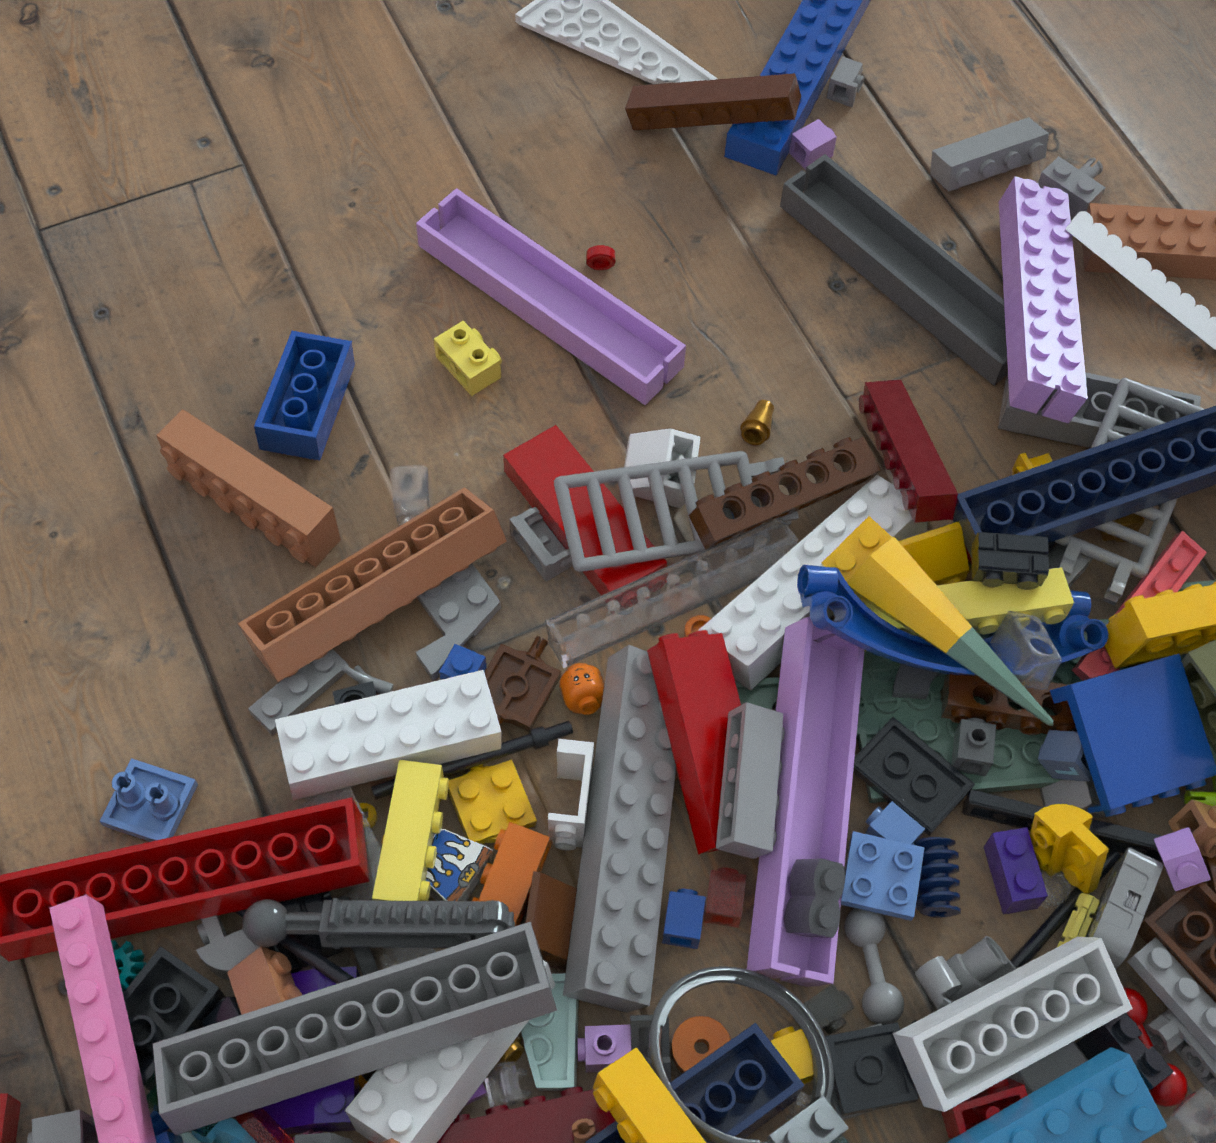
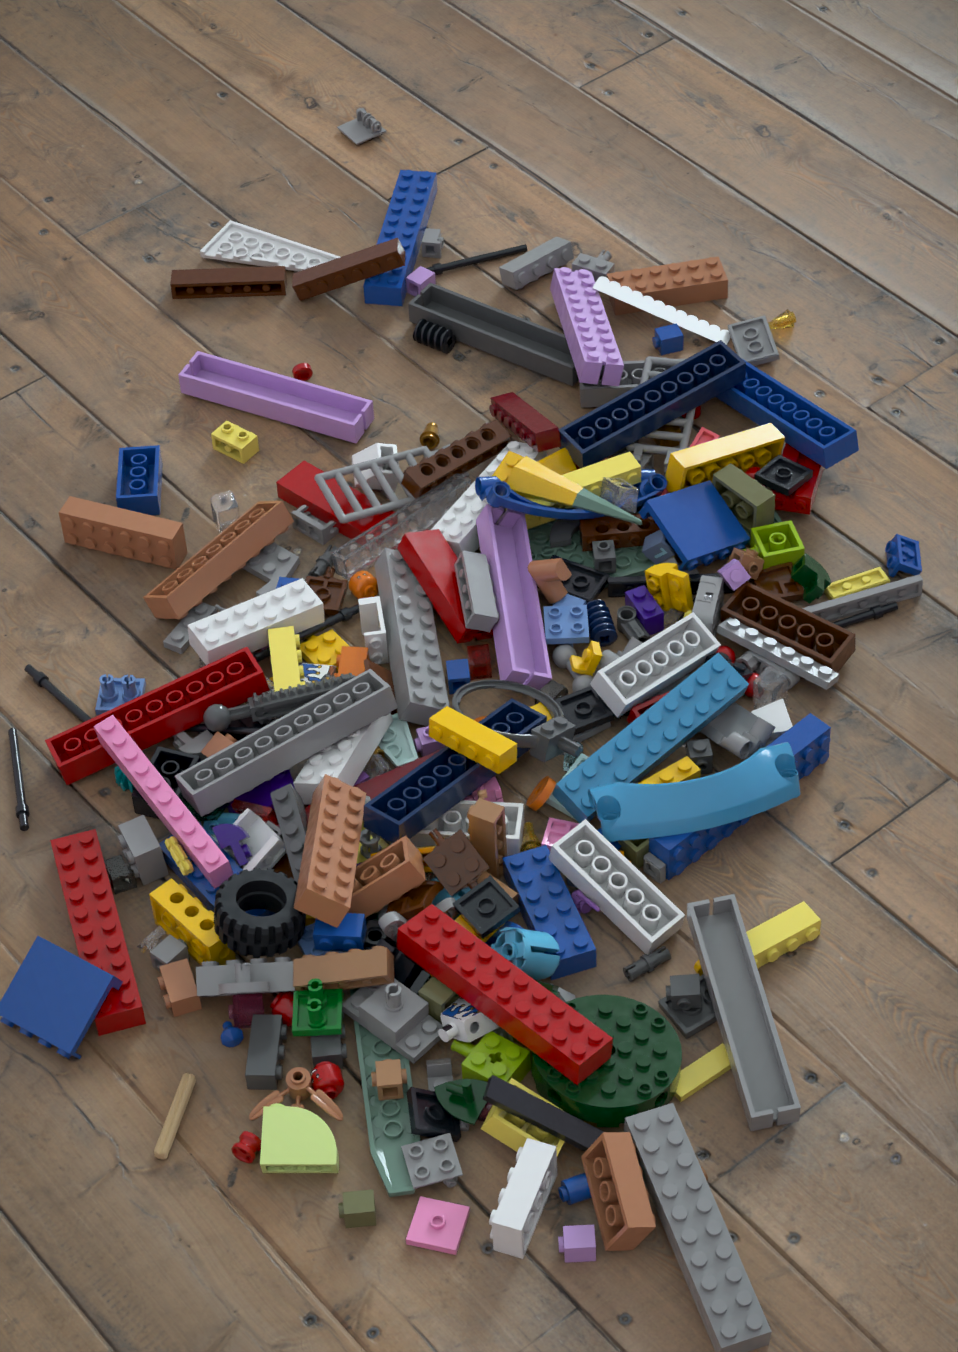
camera: 10 degrees left, 15 degrees down
(45, 731) = (43, 681): none -> black bar
(534, 622) = (323, 562): none -> dark grey pin
(540, 76) = (228, 282): none -> reddish brown brick
(807, 245) = (434, 336): none -> black piece
(814, 898) = (530, 641): dark grey brick -> none
(843, 125) = (439, 268): none -> black bar
(876, 783) = (548, 577): none -> nougat brick
(900, 963) = (589, 661): none -> yellow bracket
(988, 902) = (630, 625): none -> dark grey piece
(1010, 560) = (596, 450): black brick -> none
(1158, 340) = (668, 339): none -> blue brick

